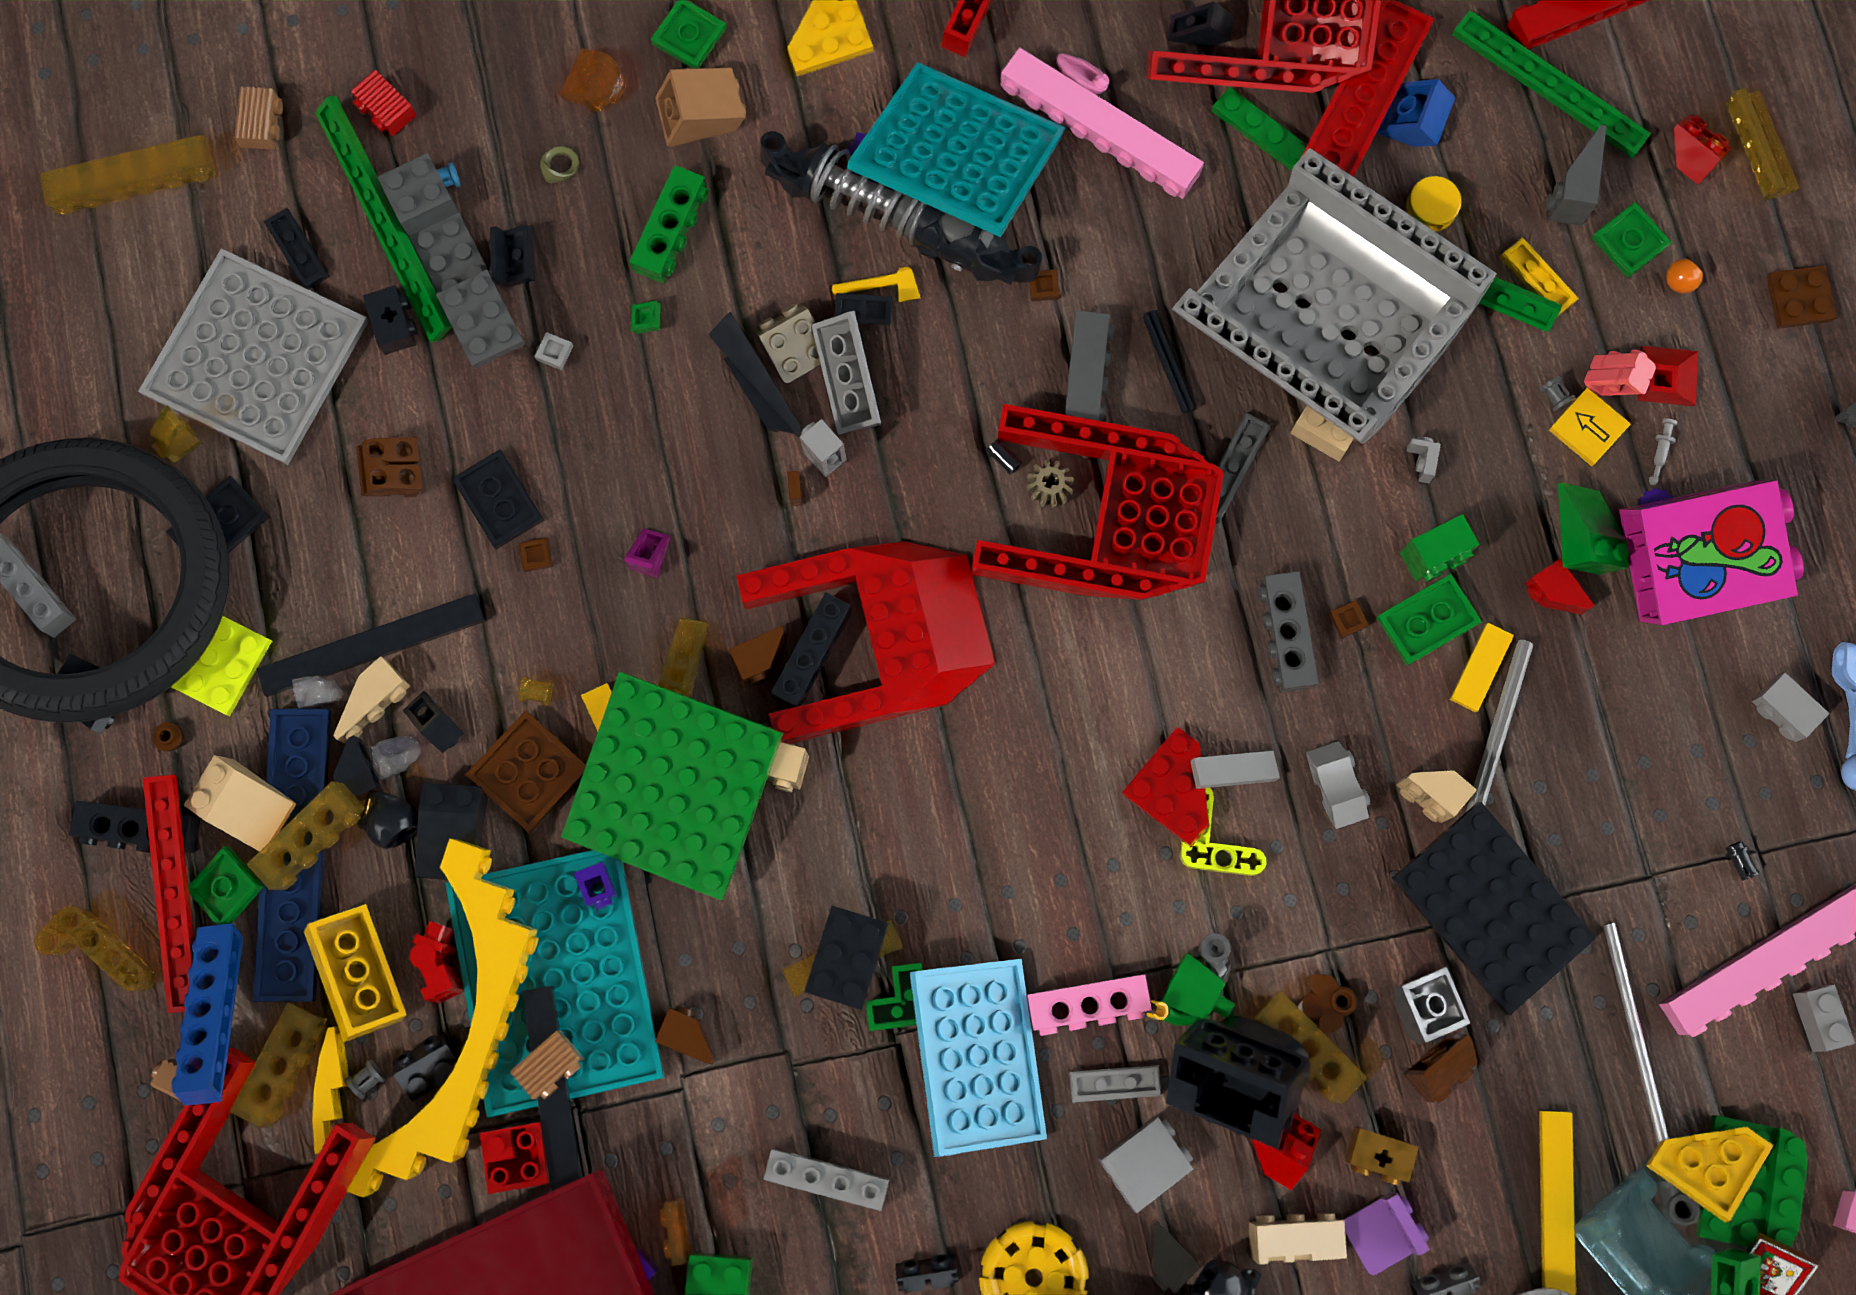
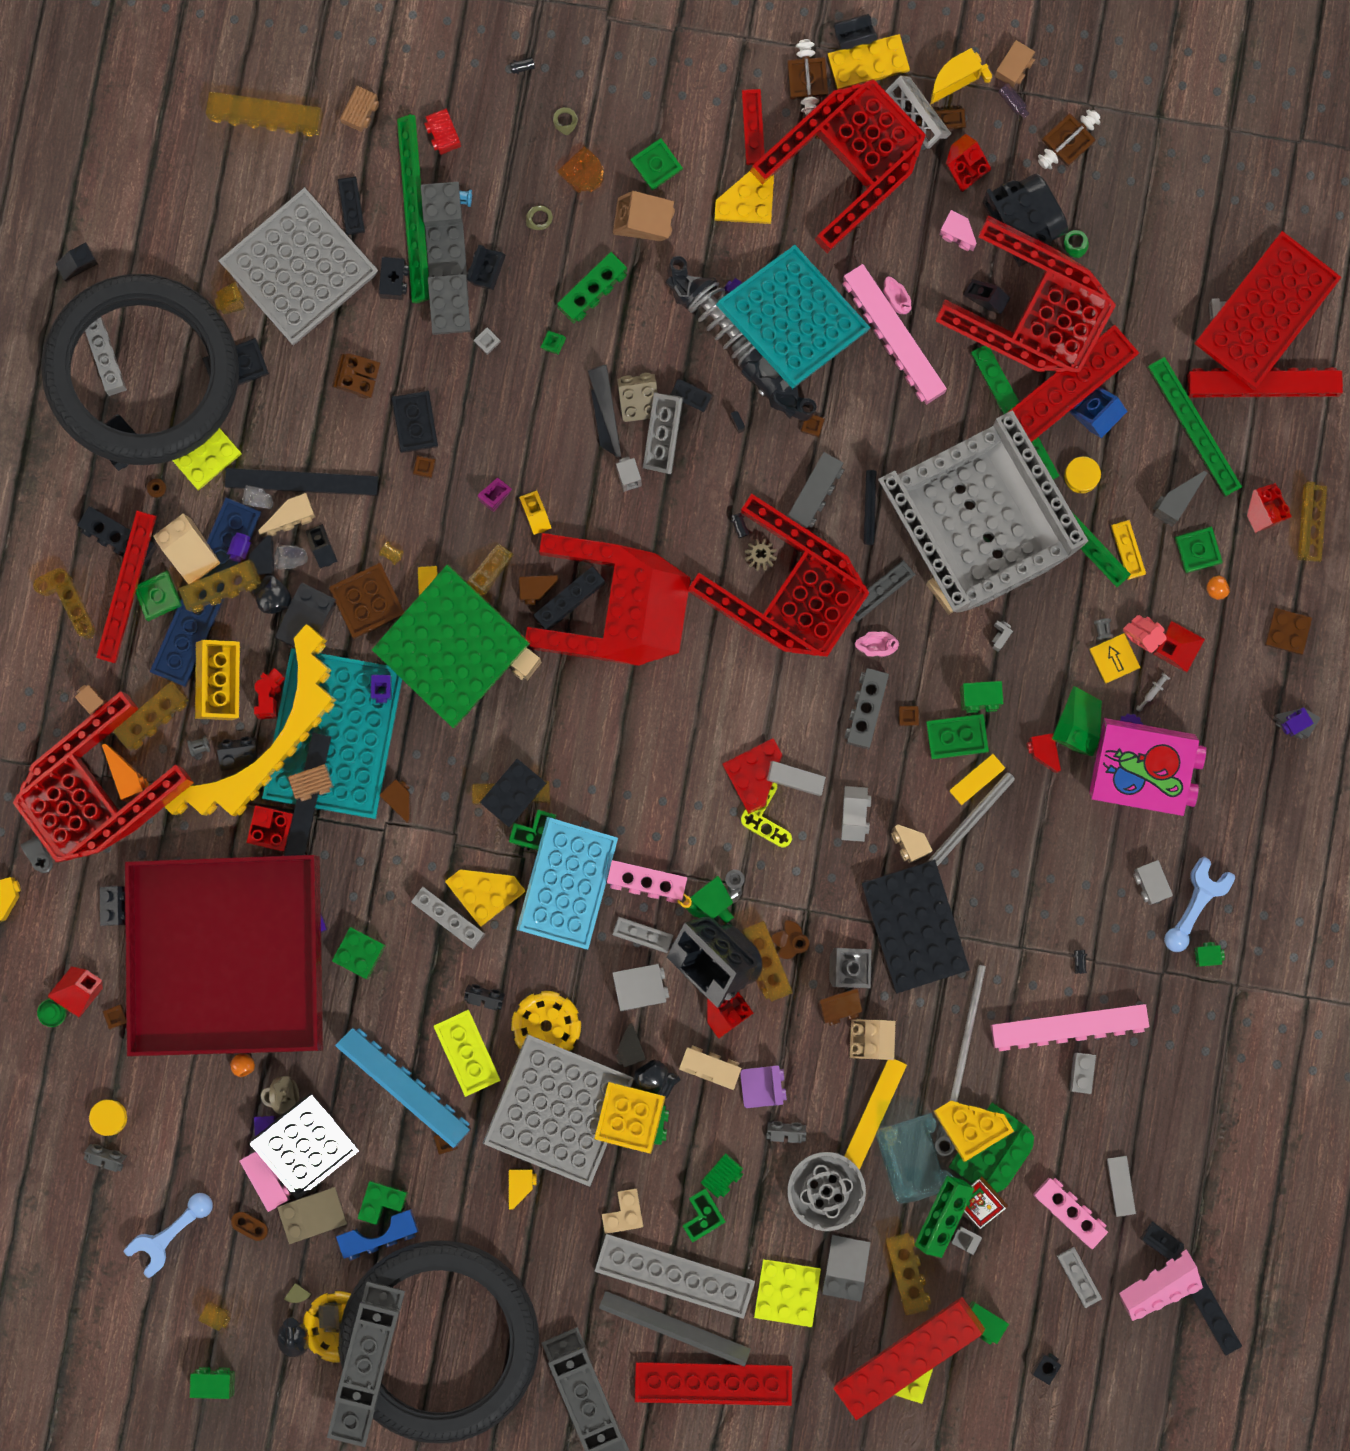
camera: 20 degrees right, 5 degrees up
(206, 1085) = (109, 709): blue brick -> none
(270, 1169) = (127, 779): none -> orange slope
(314, 770) = (239, 547): none -> dark purple brick
(330, 1076) = (178, 736): yellow slope -> none
(550, 35) = (566, 130): none -> olive piece
(674, 1218) = (346, 916): clear orange plate -> none
(715, 553) = (535, 512): none -> yellow slope
(794, 486) = (601, 492): reddish brown tile -> none
(863, 1119) = (484, 893): none -> yellow plate
(904, 278) = (726, 384): yellow piece -> none
(941, 320) = (737, 421): none -> black tile
(1263, 538) = (877, 644): none -> bright pink arm
(1399, 1156) = (792, 1044): pearl gold brick -> none
(1507, 1097) = (872, 1039): none -> tan slope

